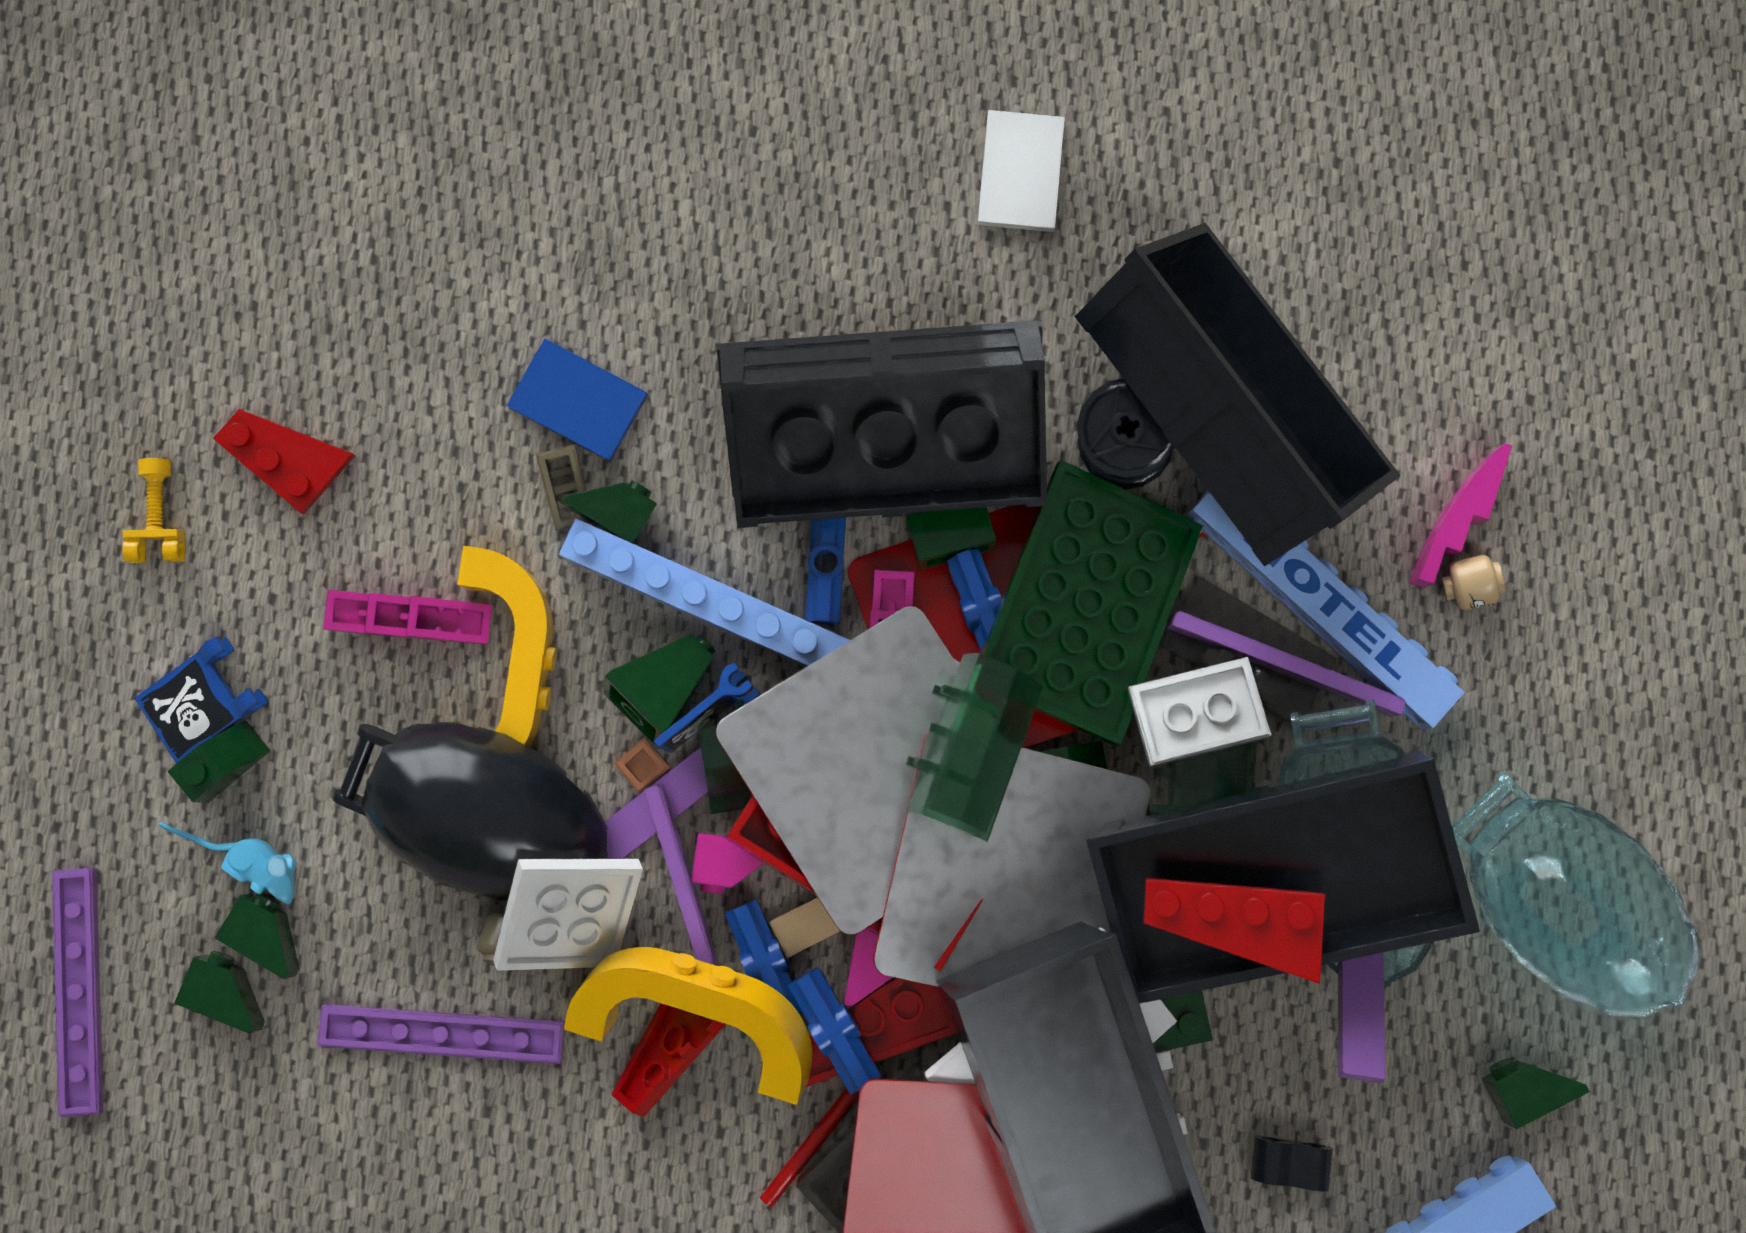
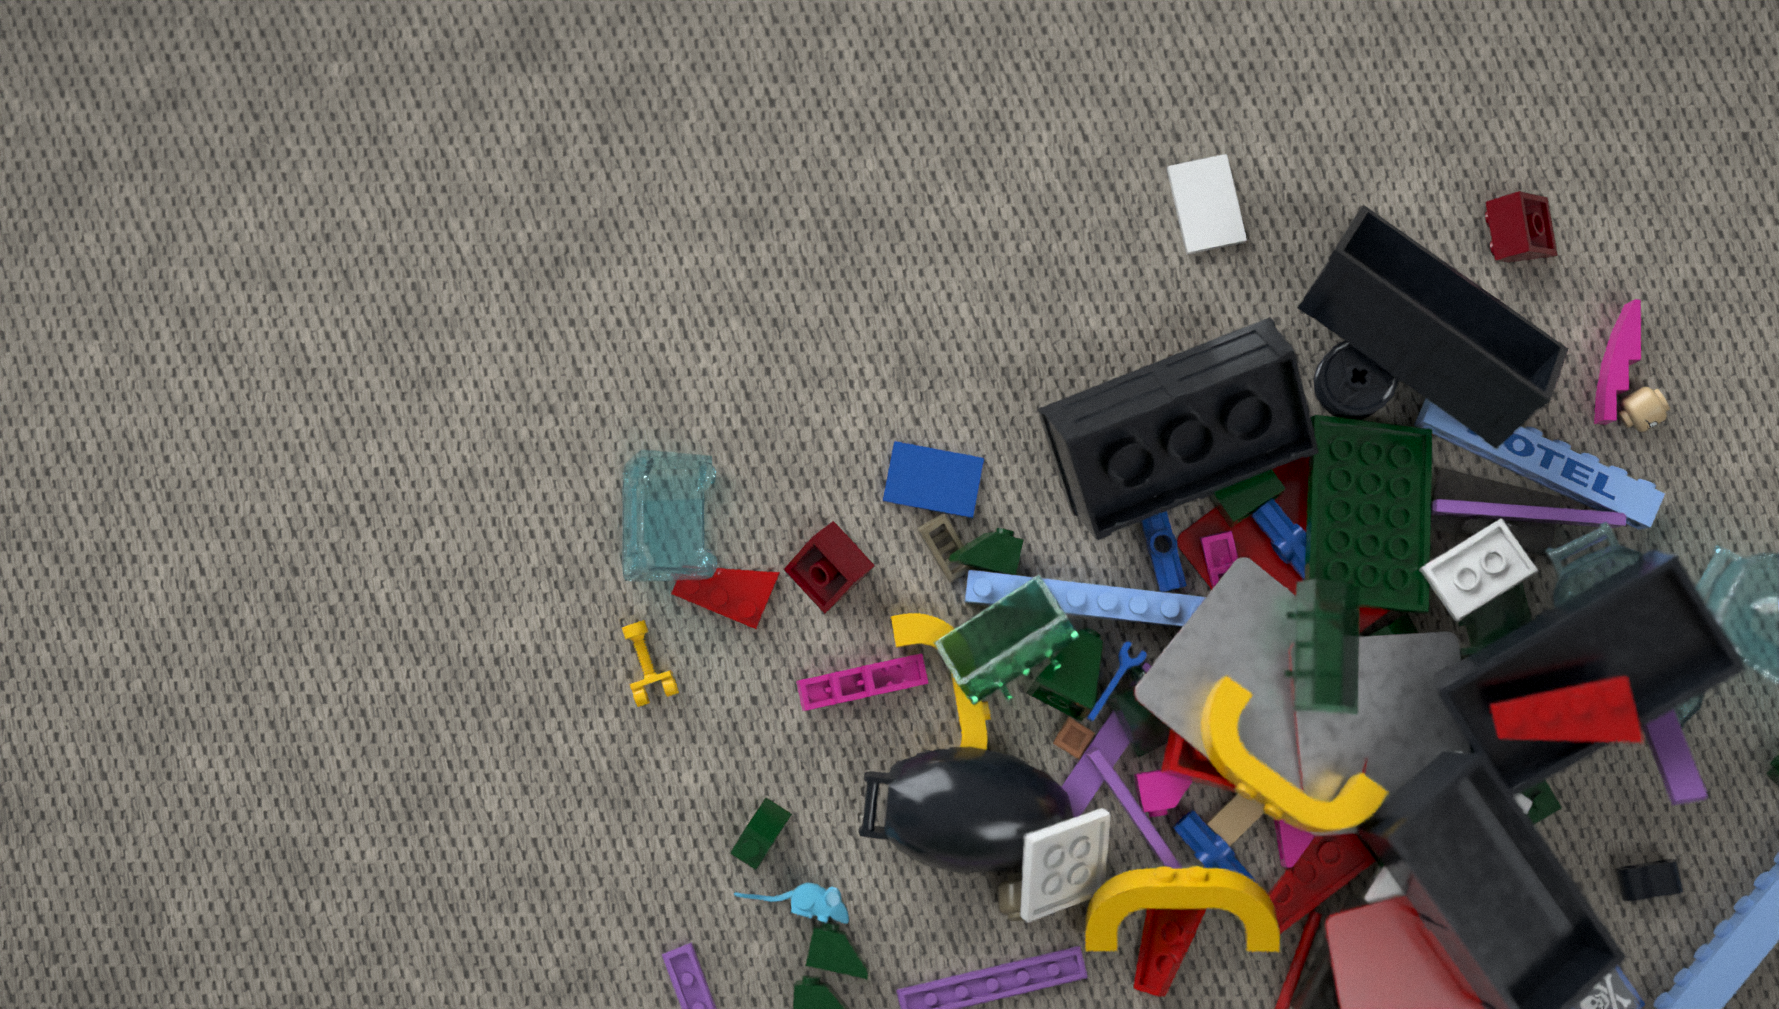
camera: 10 degrees left, 0 degrees up
(195, 701) = (724, 796): flag -> none
(237, 342) = (666, 517): none -> clear light blue windscreen
(413, 463) = (828, 566): none -> dark red slope
(587, 618) = (1006, 640): none -> clear green piece
(834, 1029) = (1286, 888): blue piece -> none
(838, 896) = (1258, 782): none -> yellow arch
(1395, 314) = (1520, 227): none -> dark red slope

